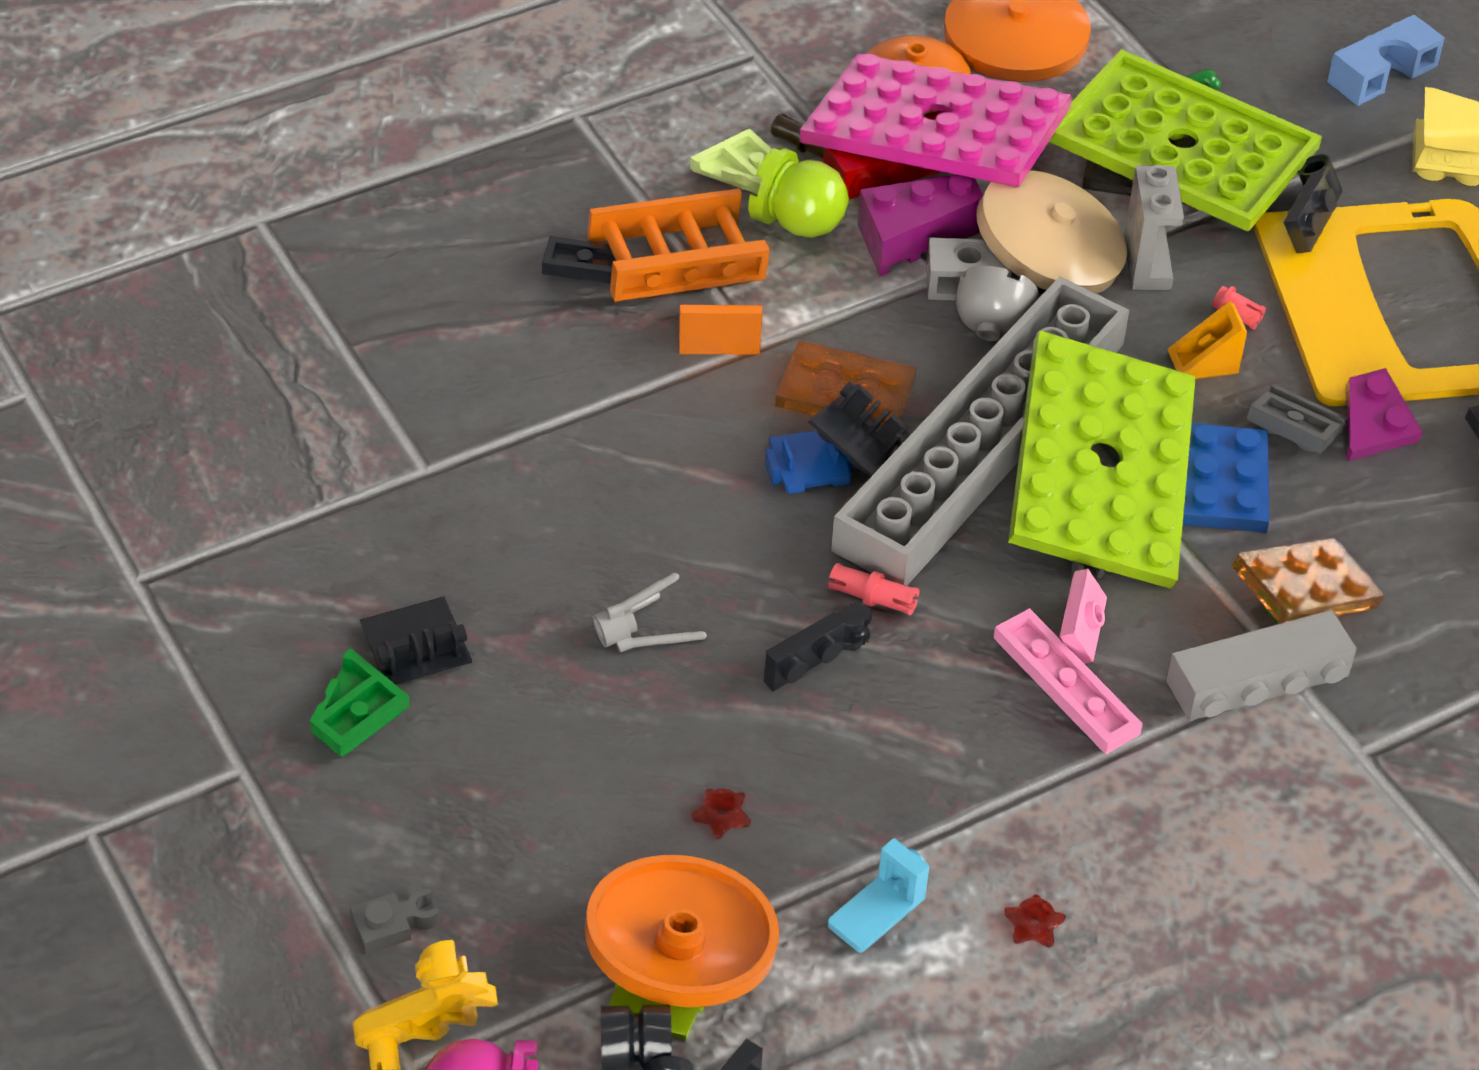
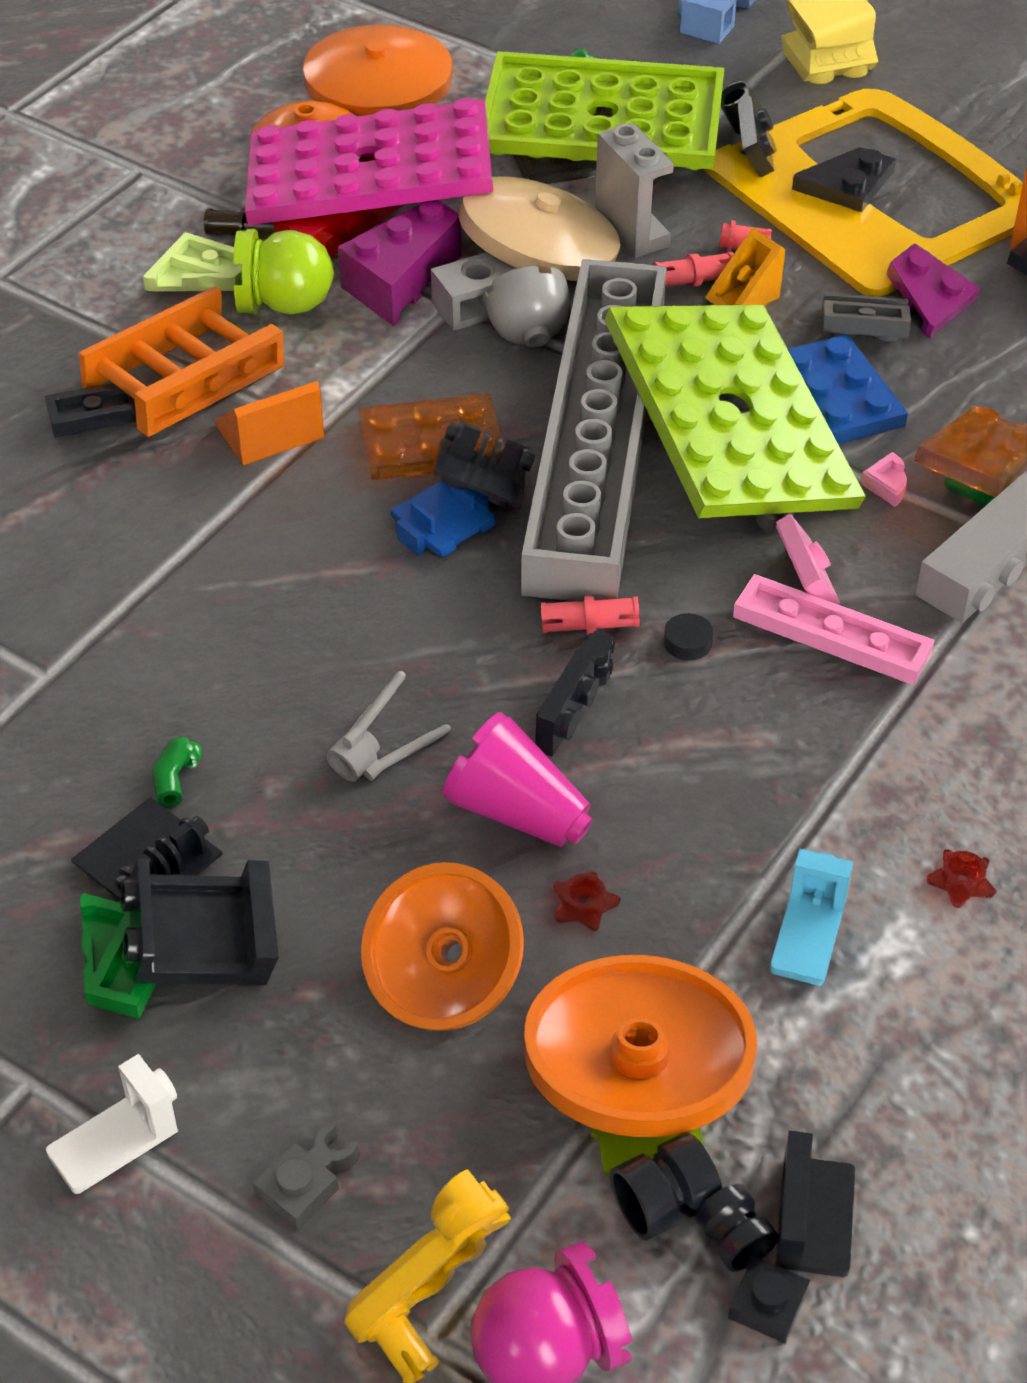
camera: 25 degrees left, 0 degrees up
(280, 830) = (120, 1131): none -> white bracket
(414, 706) = (200, 926): none -> black panel
(470, 578) = (165, 770): none -> green arm
(567, 784) = (410, 941): none -> orange dish
(717, 698) = (517, 785): none -> dark pink cone
(944, 639) = (688, 636): none -> black tile
(1164, 319) = (695, 269): none -> coral pin
(1212, 572) = (887, 479): none -> bright pink tile
(1375, 284) = (847, 178): none -> black wing

